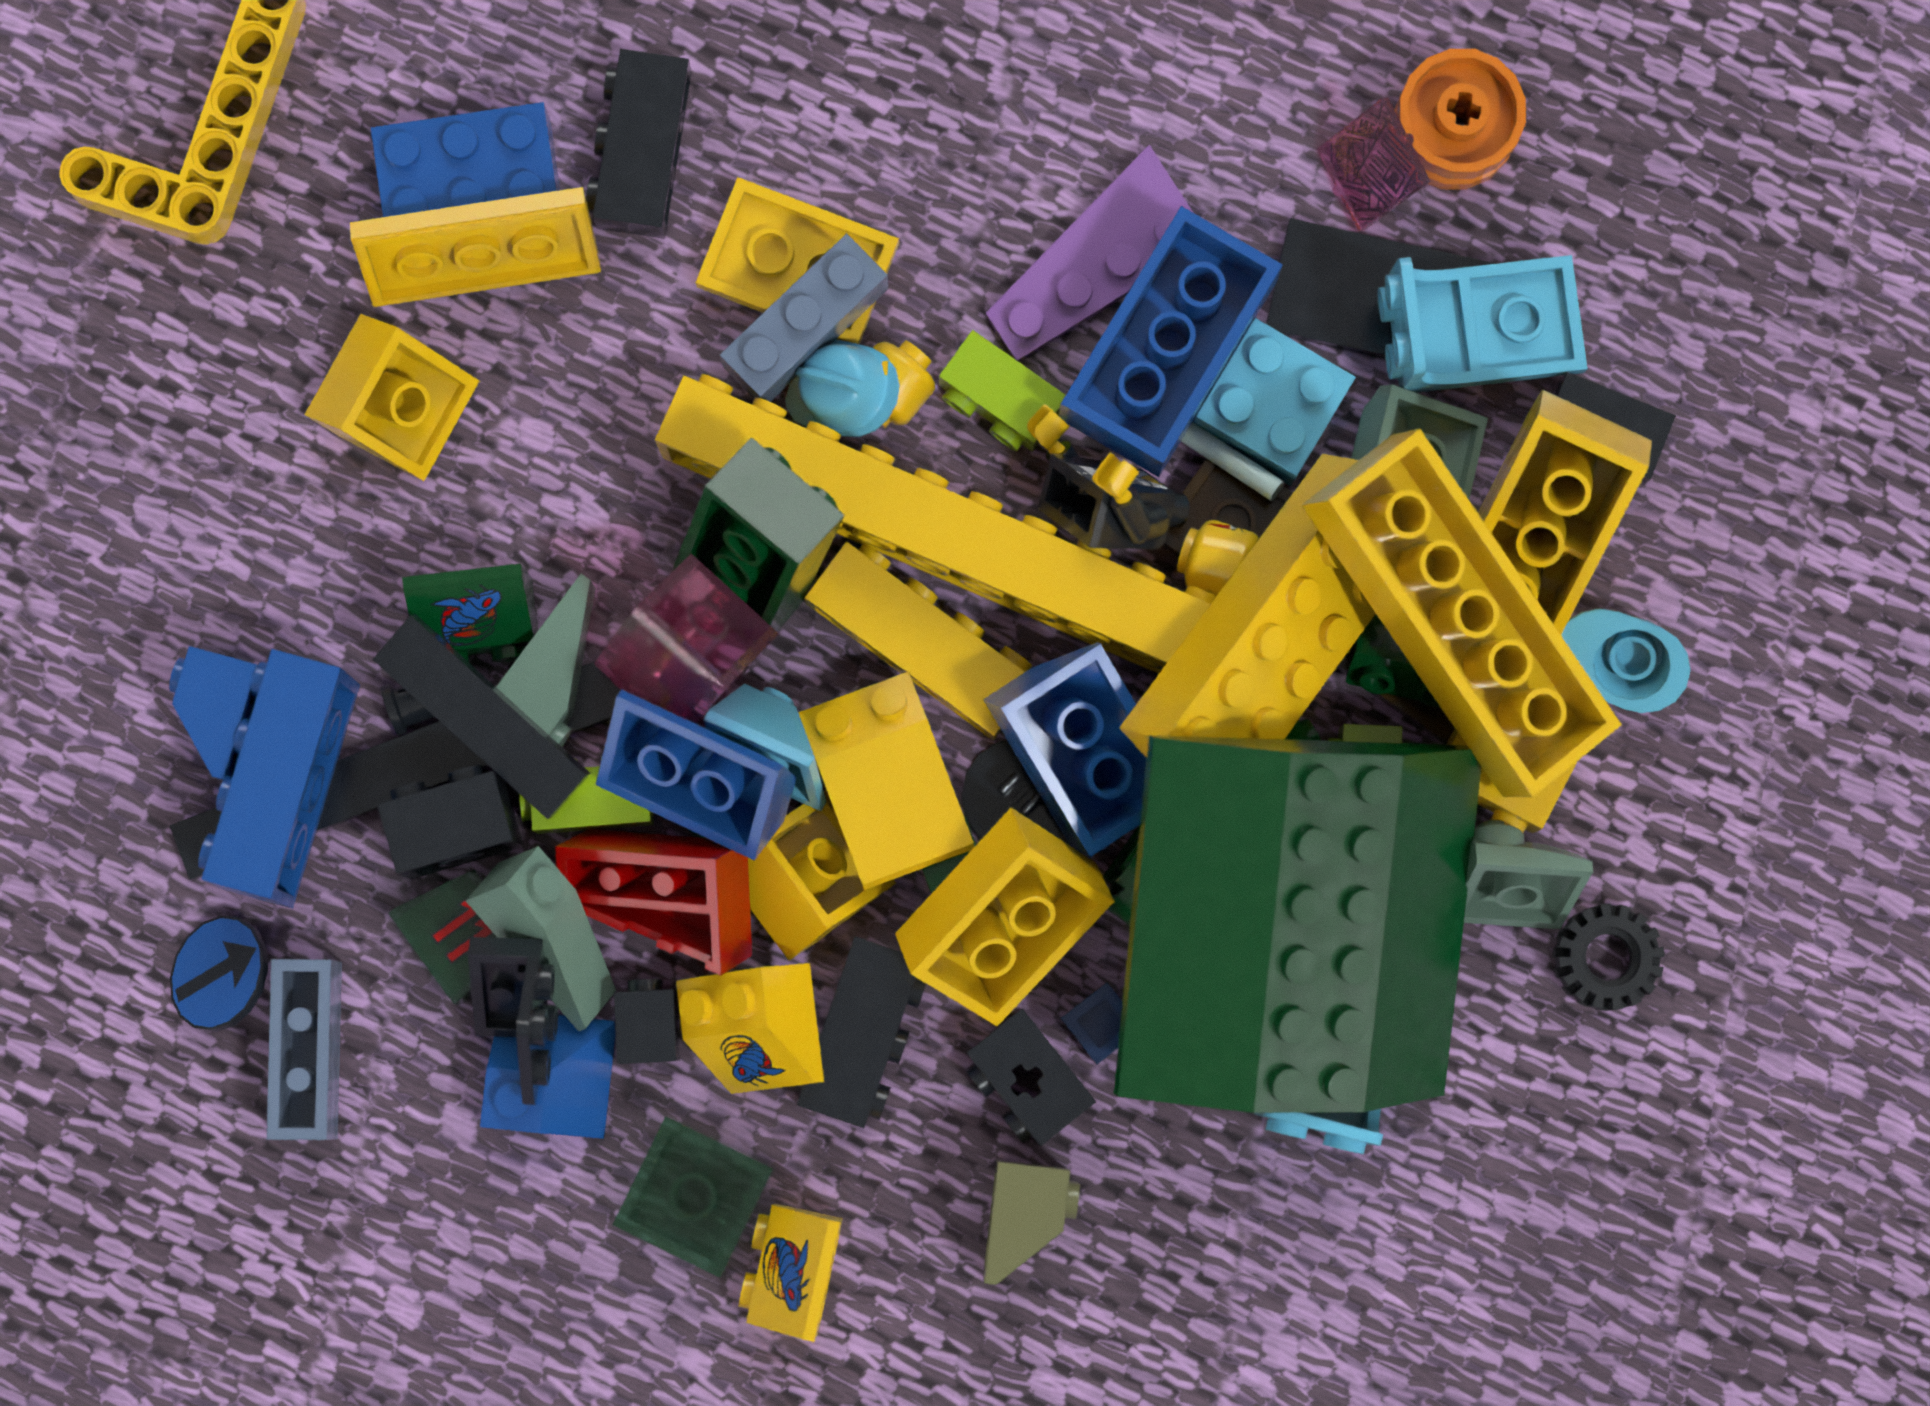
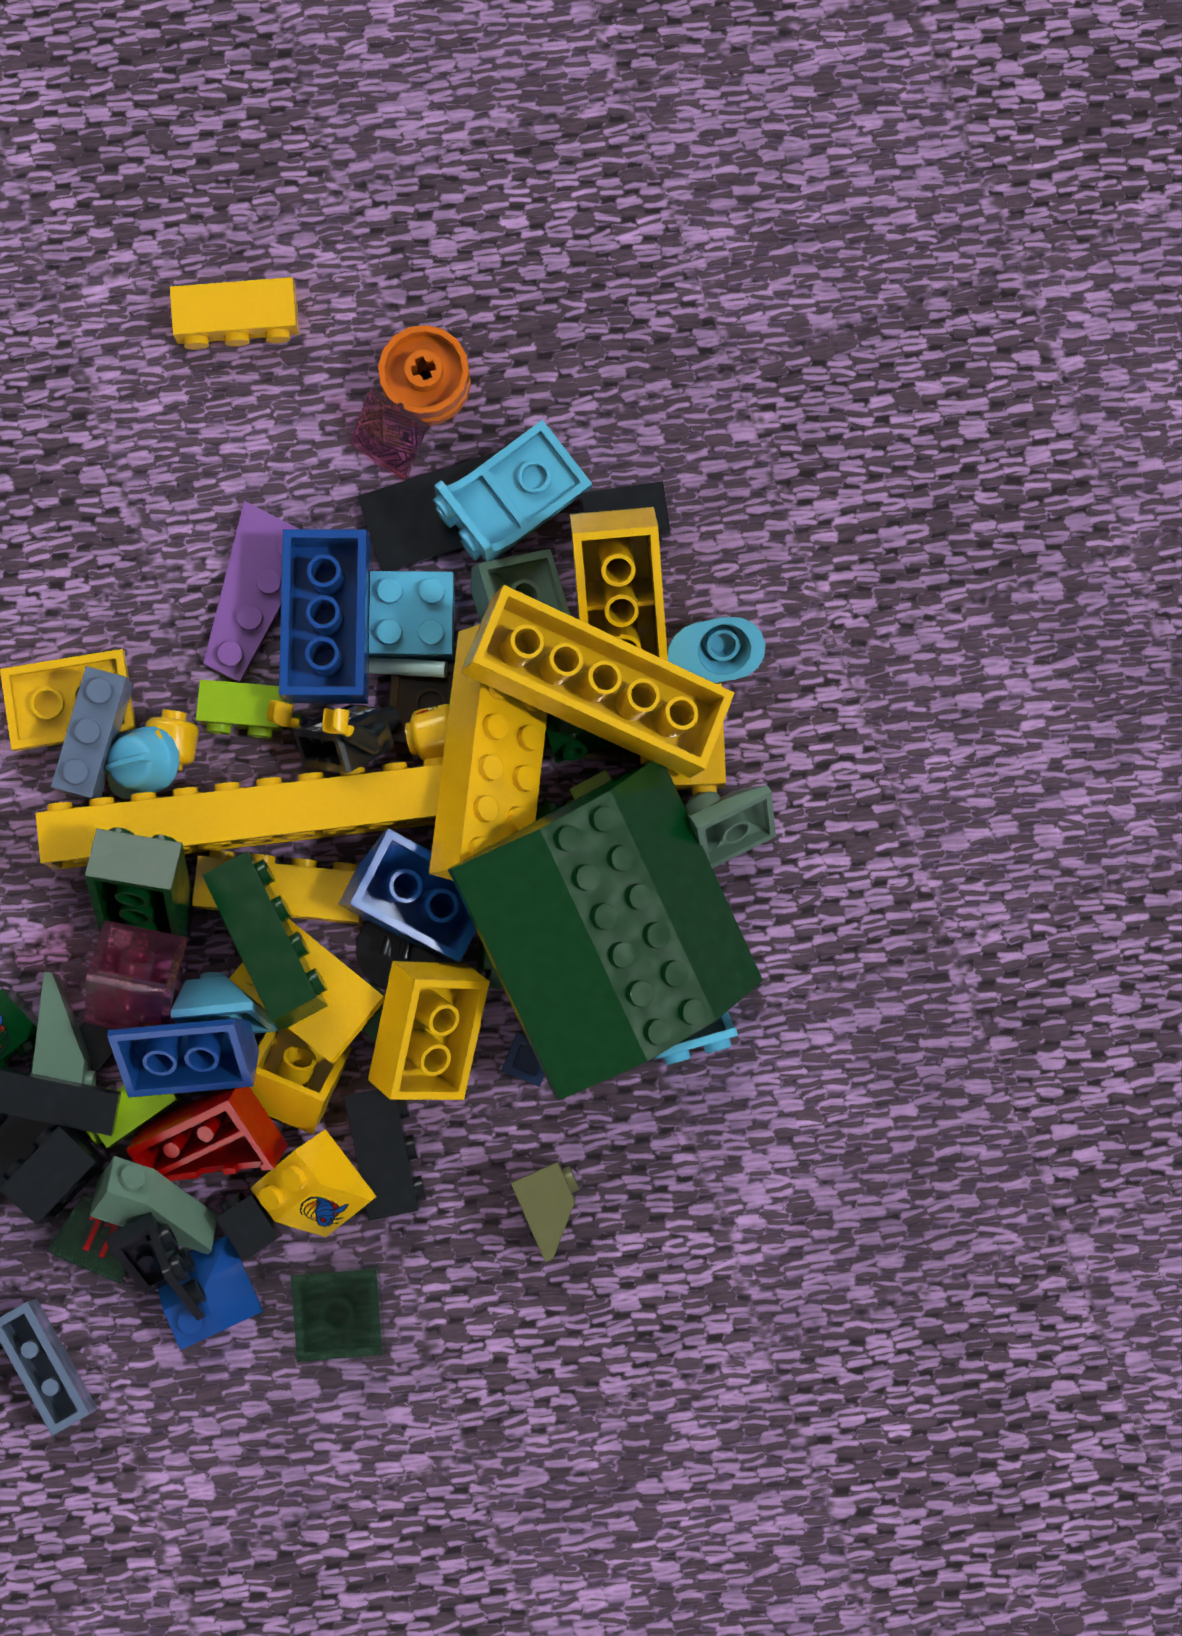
camera: 25 degrees left, 0 degrees up
(792, 1271) = (426, 1324): yellow slope -> none
(872, 692) = (265, 939): none -> dark green brick
(1061, 1092) = (486, 1101): black brick -> none
(1642, 949) = (832, 819): black tyre -> none

